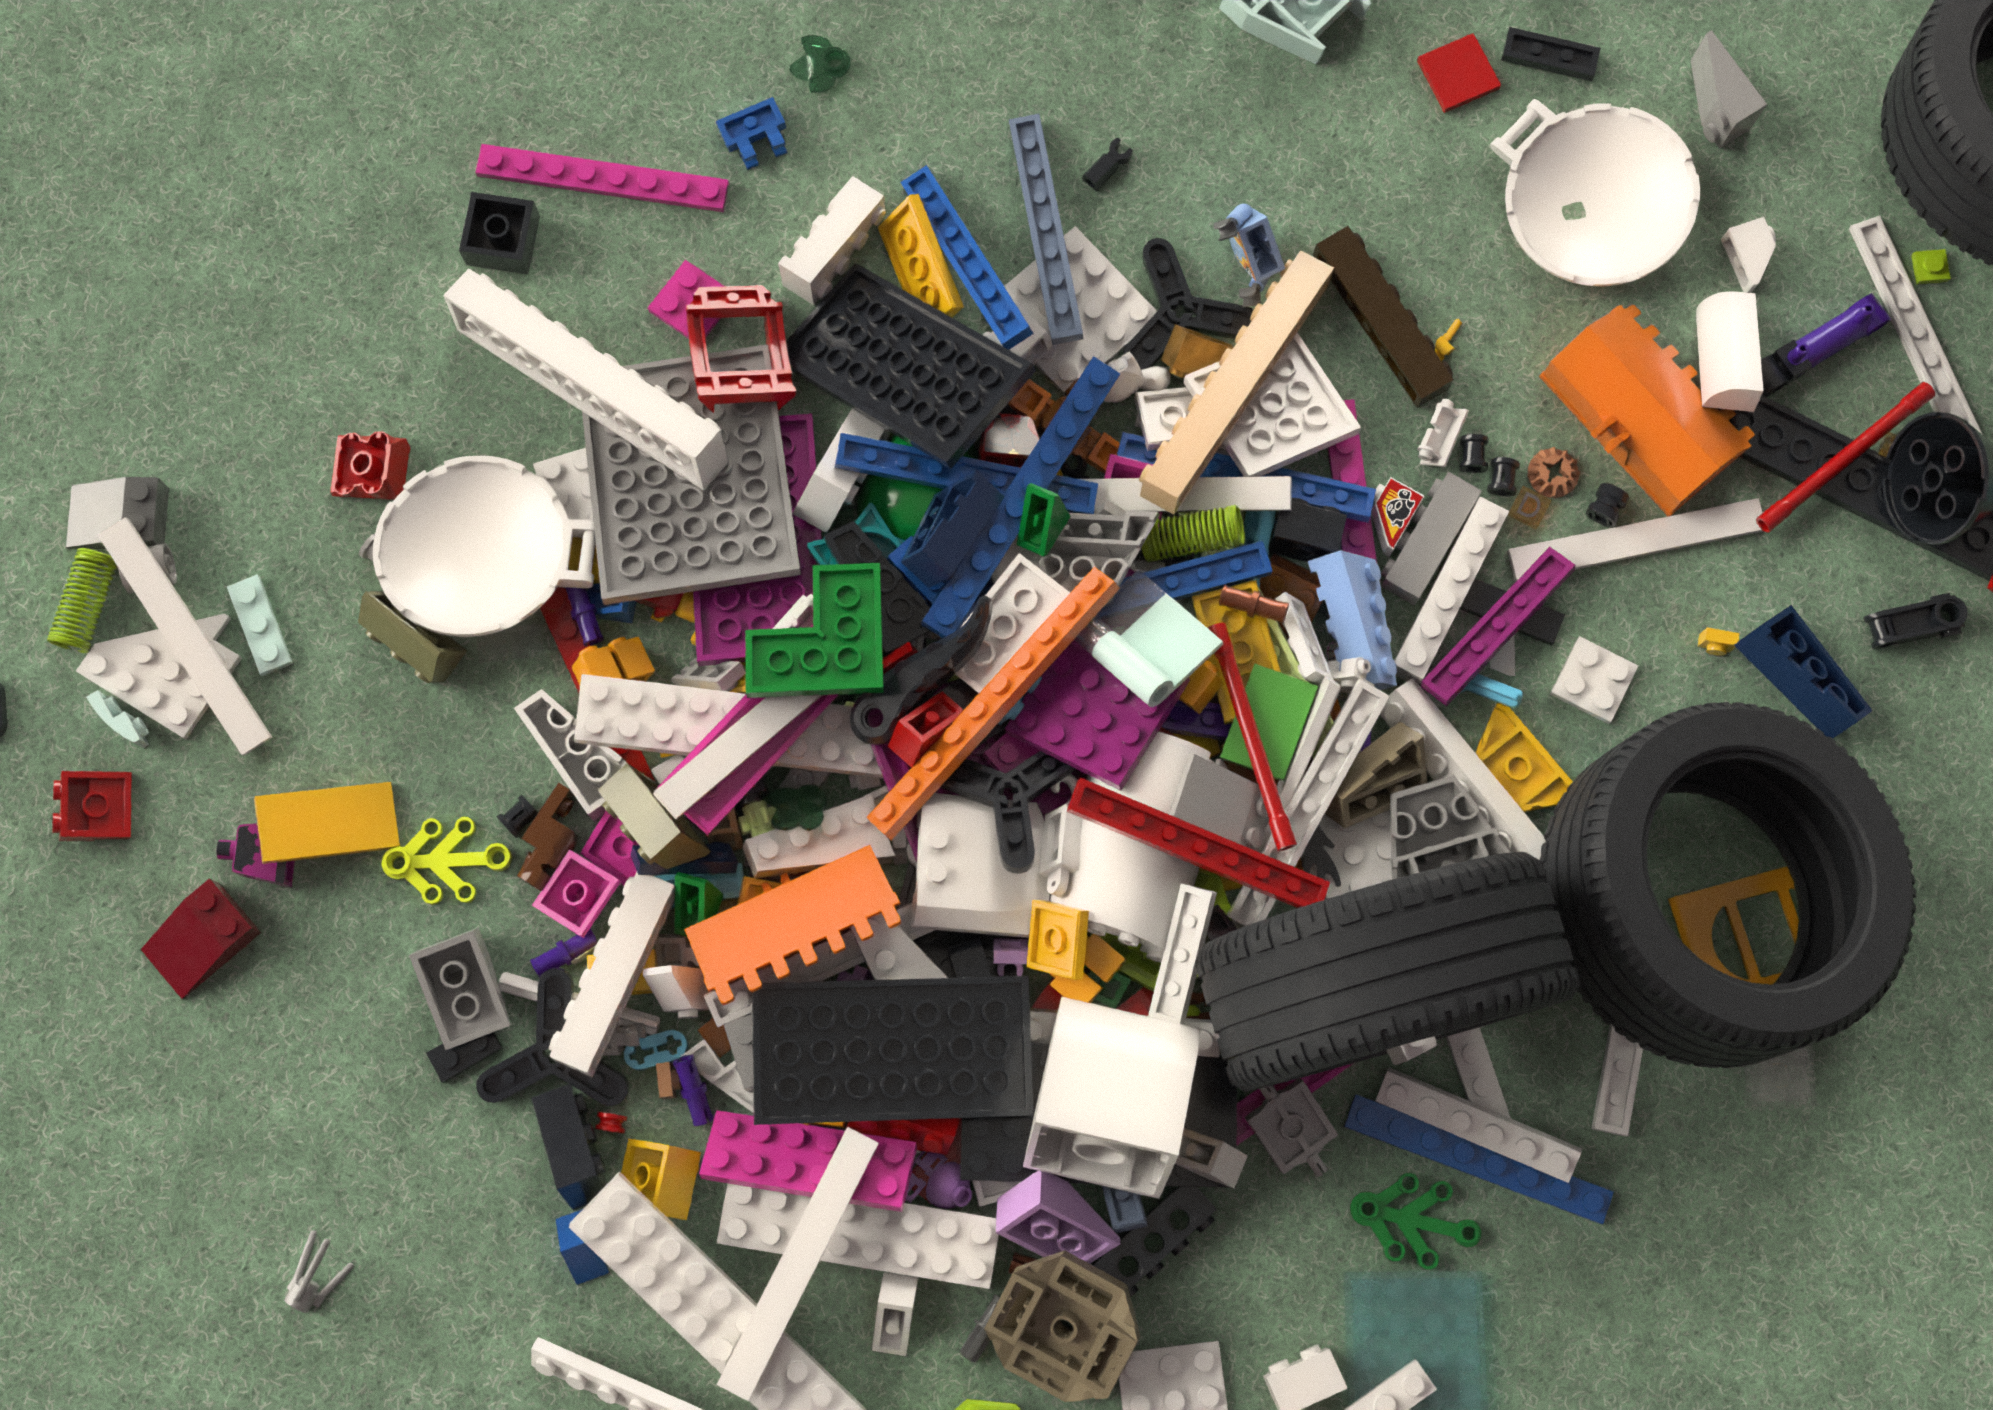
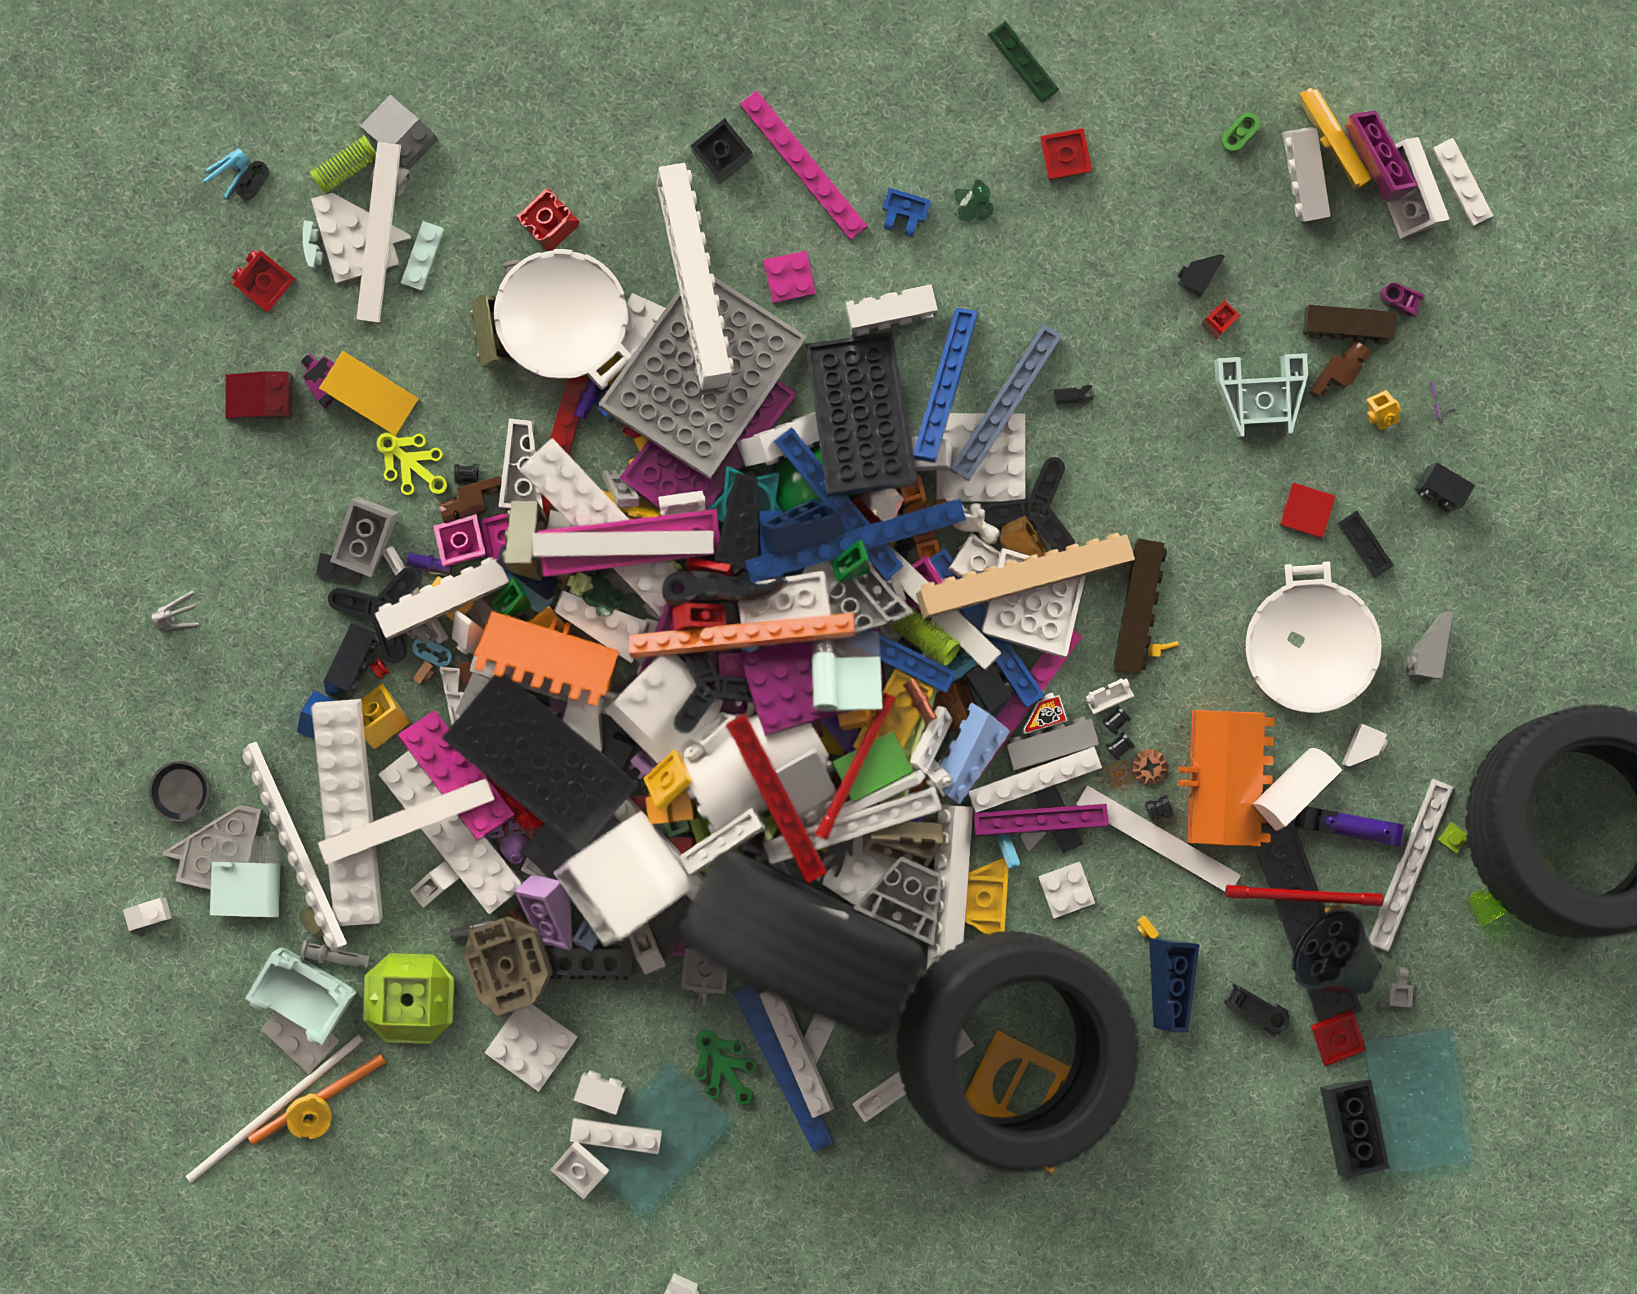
camera: 45 degrees right, 10 degrees up
(618, 660) = (579, 441): light orange piece -> none
(693, 1090) = (432, 689): dark purple pin -> none
(739, 385) = (771, 351): red wedge -> none
(835, 654) = (688, 541): green plate -> none
(919, 257) = (923, 363): yellow tile -> none
(1253, 248) = (1103, 513): light blue torso -> none

